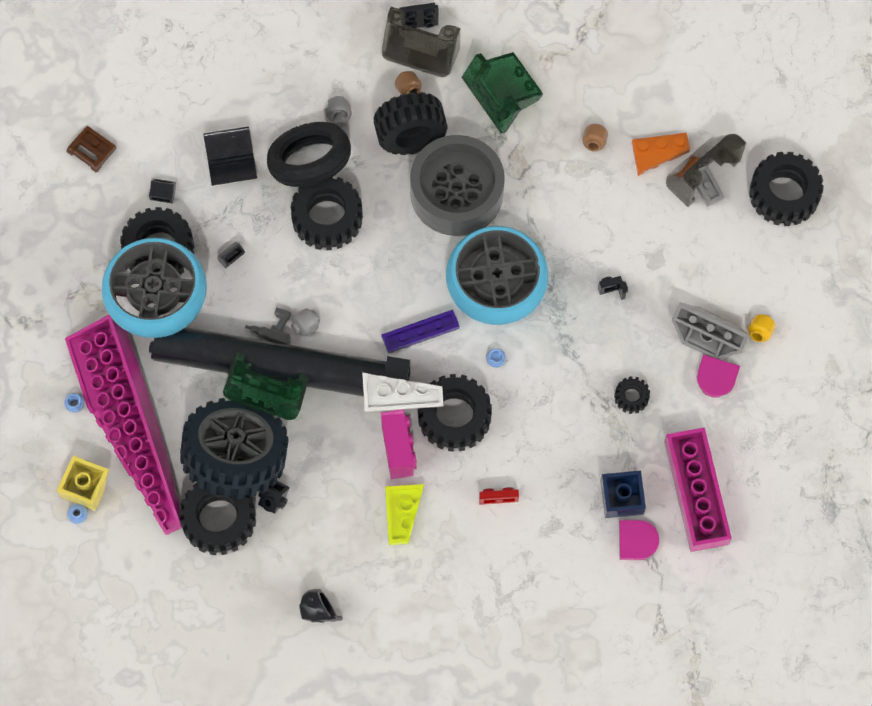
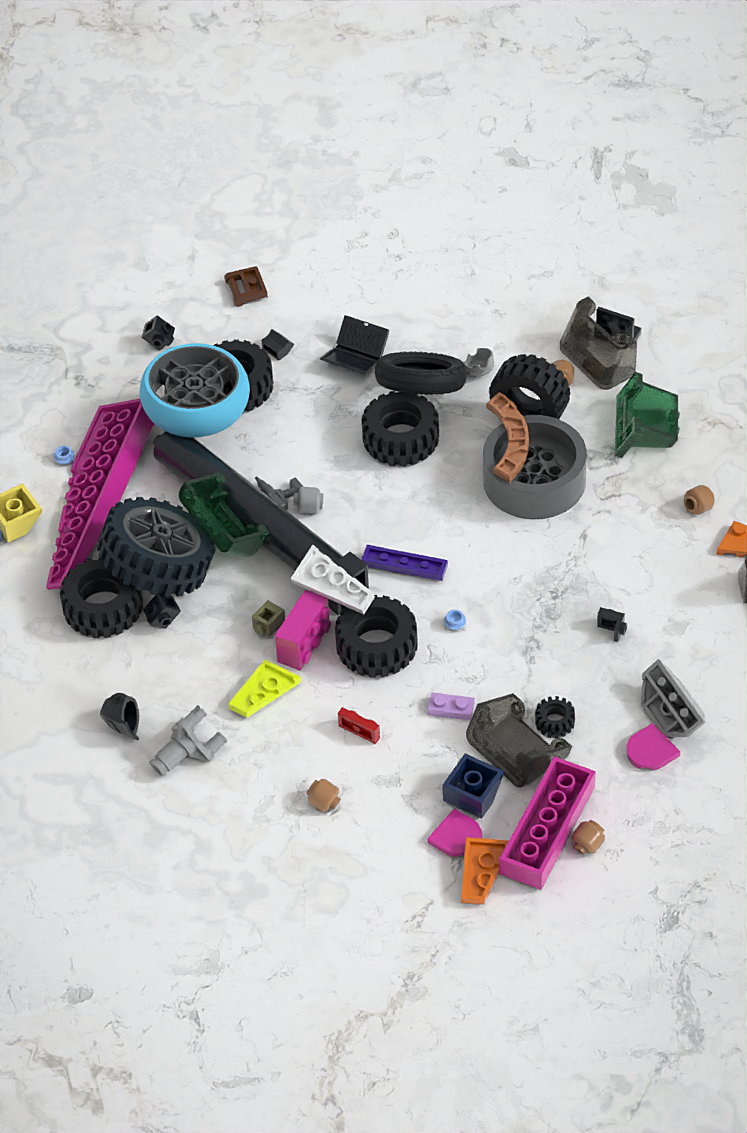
camera: 40 degrees right, 20 degrees down
(60, 240) = (158, 332): none -> black brick
(235, 246) = (291, 419): black piece -> none
(356, 443) = (268, 618): none -> olive brick
(385, 598) = (185, 744): none -> light grey wheel
(433, 170) = (517, 436): none -> nougat tile
(519, 573) = (323, 795): none -> medium nougat head
(530, 270) = (510, 553): dark grey wheel -> none
(549, 434) = (451, 706): none -> lavender plate
(622, 438) = (510, 743): none -> clear smoke windscreen
(676, 556) = (480, 868): none -> orange wing
(731, 481) = (588, 837): none -> medium nougat head
(761, 328) = (727, 731): yellow head -> none

